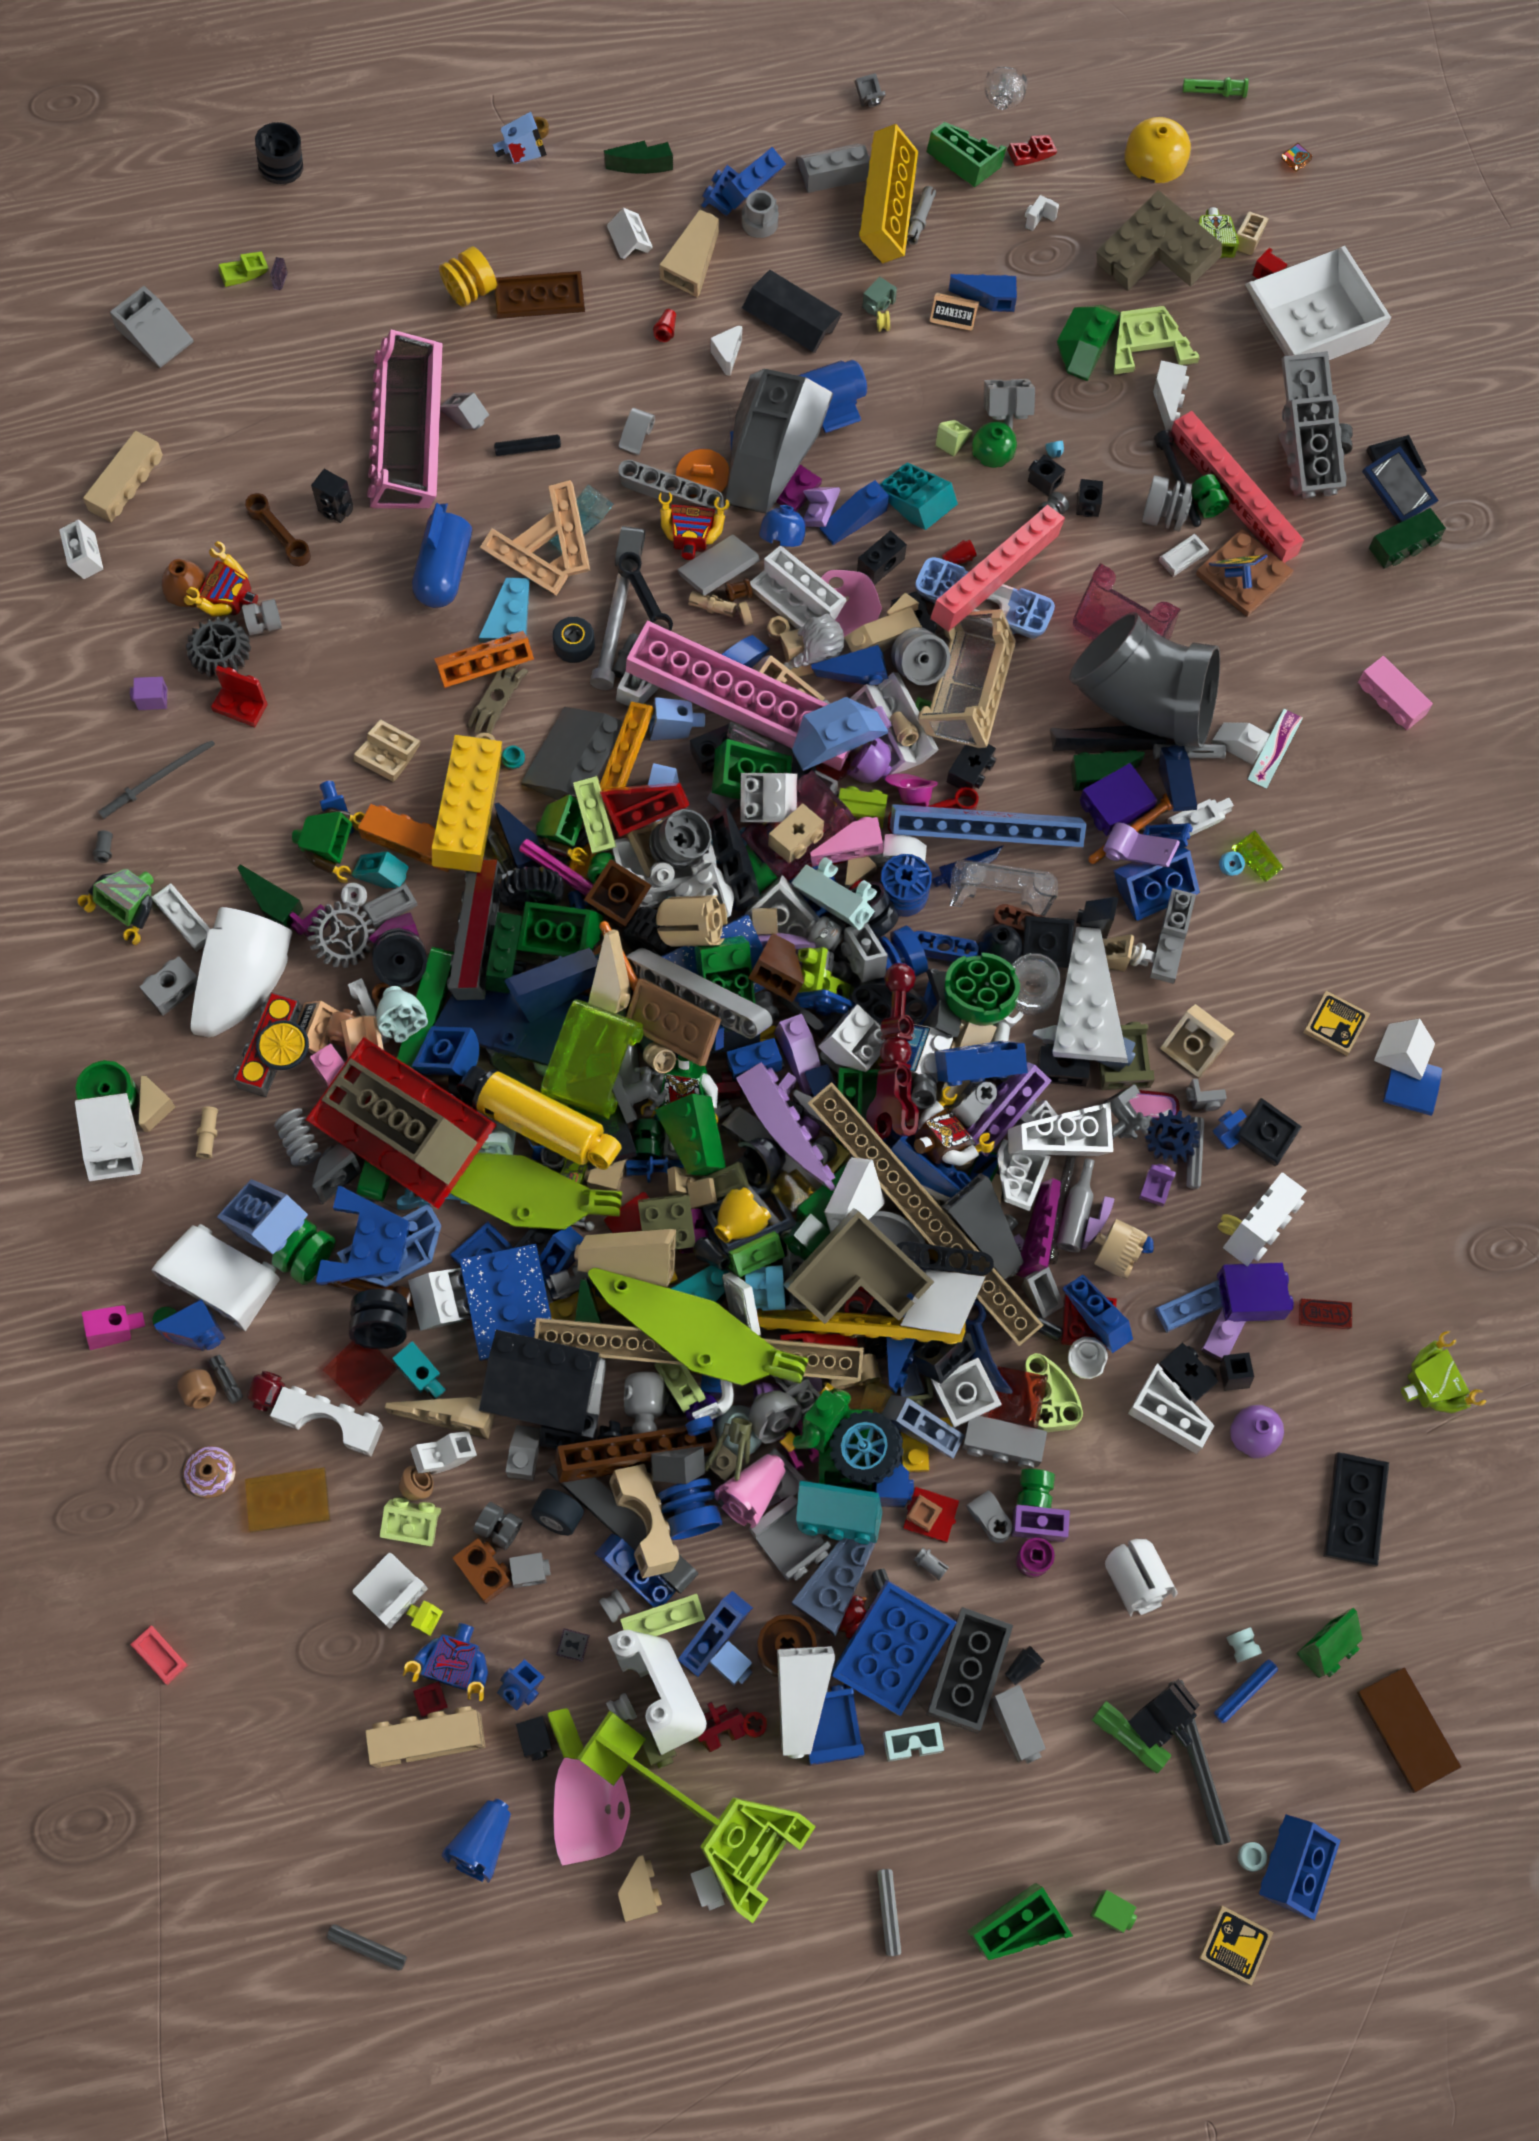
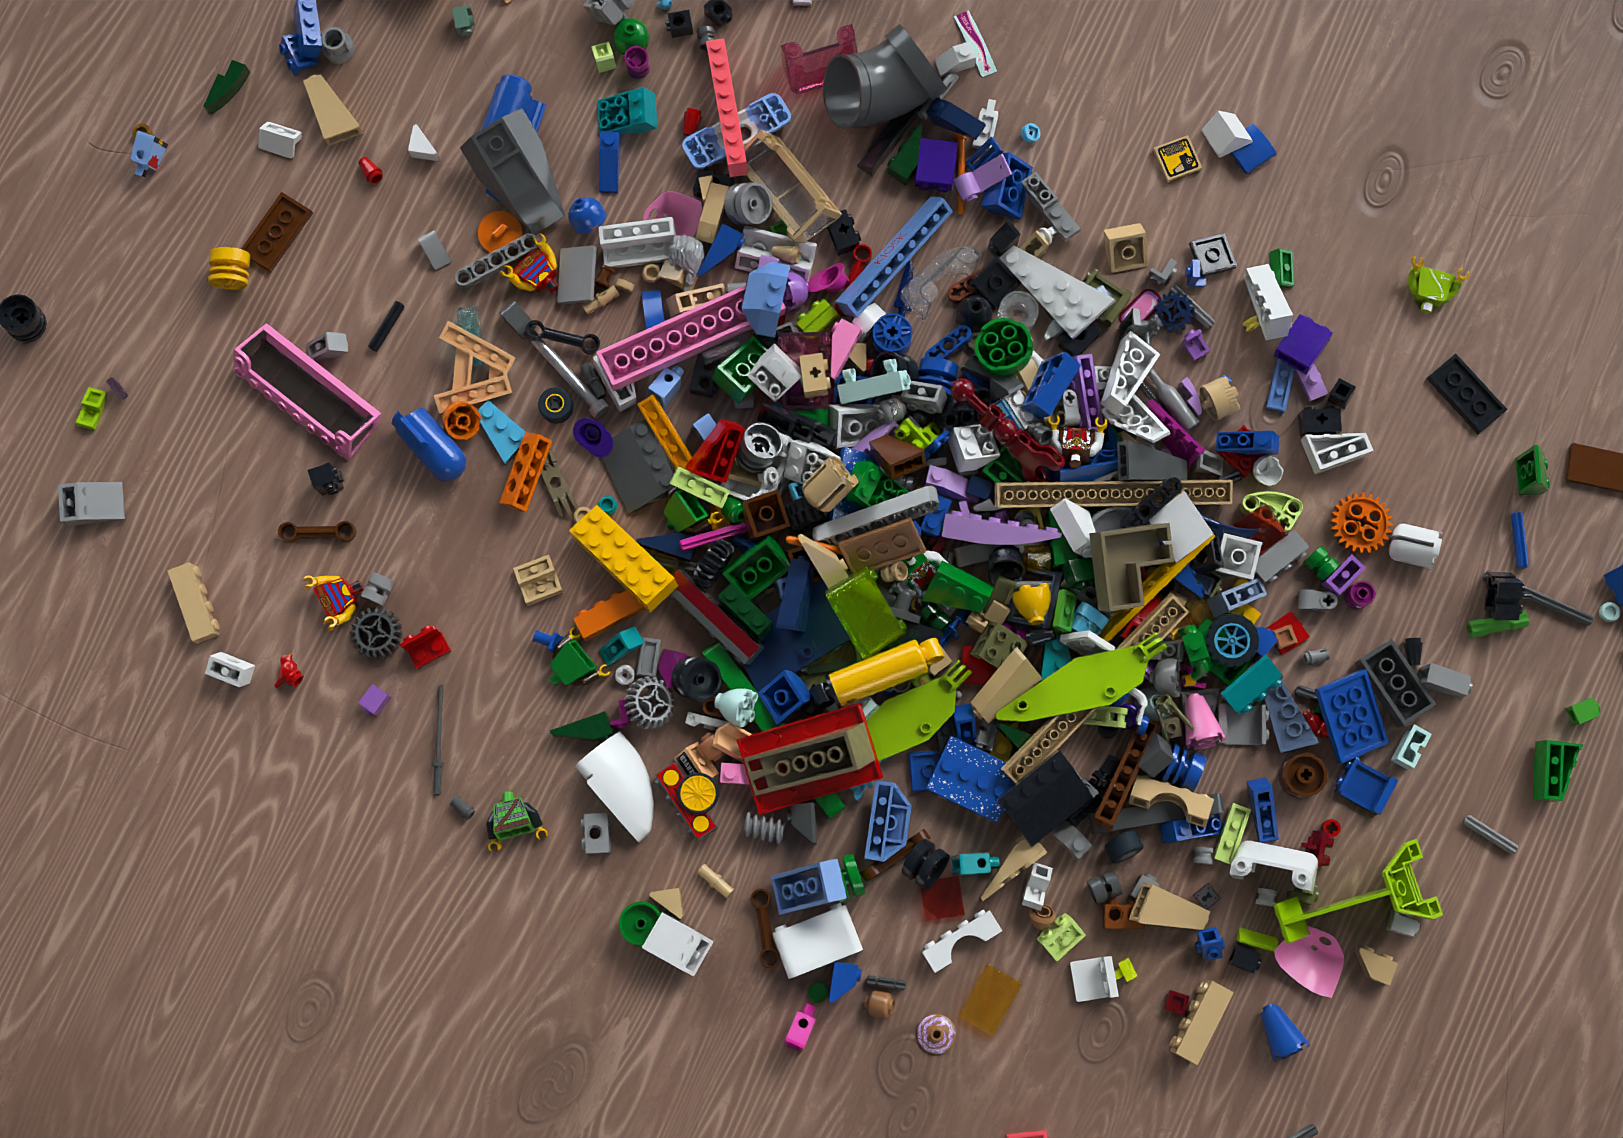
camera: 45 degrees left, 10 degrees up
(119, 602) = (288, 672): none -> red animal
(178, 578) = (313, 627): dark orange piece -> none
(182, 916) = (553, 791): white tile -> none
(197, 1213) = (765, 928): none -> reddish brown piece
(265, 1390) = (914, 963): dark red head -> none
(376, 1242) = (878, 829): blue wing -> none
(440, 1298) = (938, 817): white slope -> none
(452, 1662) = (1166, 973): blue torso -> none
(486, 567) = (461, 420): none -> orange cylinder
(520, 1604) = (1165, 909): none -> tan slope
(569, 691) = (593, 437): none -> dark purple piece
(645, 1399) = (1095, 744): light grey piece -> none
(732, 1664) = (1289, 814): light blue brick -> none
(765, 920) = (852, 438): tan tile -> none
(791, 310) = (426, 82): black slope -> none
(793, 492) = (563, 182): magenta wing -> none
(802, 1691) = (1341, 788): white slope -> none
(821, 505) = (586, 178): lavender slope -> none
(882, 557) = (655, 171): black brick -> none
(883, 321) = (483, 32): light yellow bush -> none
(973, 465) = (637, 62): none -> magenta wheel
(1138, 1493) = (1365, 506): none -> orange gear
(1244, 1645) = (1495, 520): light aqua wheel -> none
(1257, 1431) = (1381, 410): medium lavender cylinder -> none
(1264, 851) = (1025, 119): clear neon green slope -> none
(1317, 1213) = (1282, 264): none -> green slope
(1325, 1313) = (1344, 315): clear red tile -> none

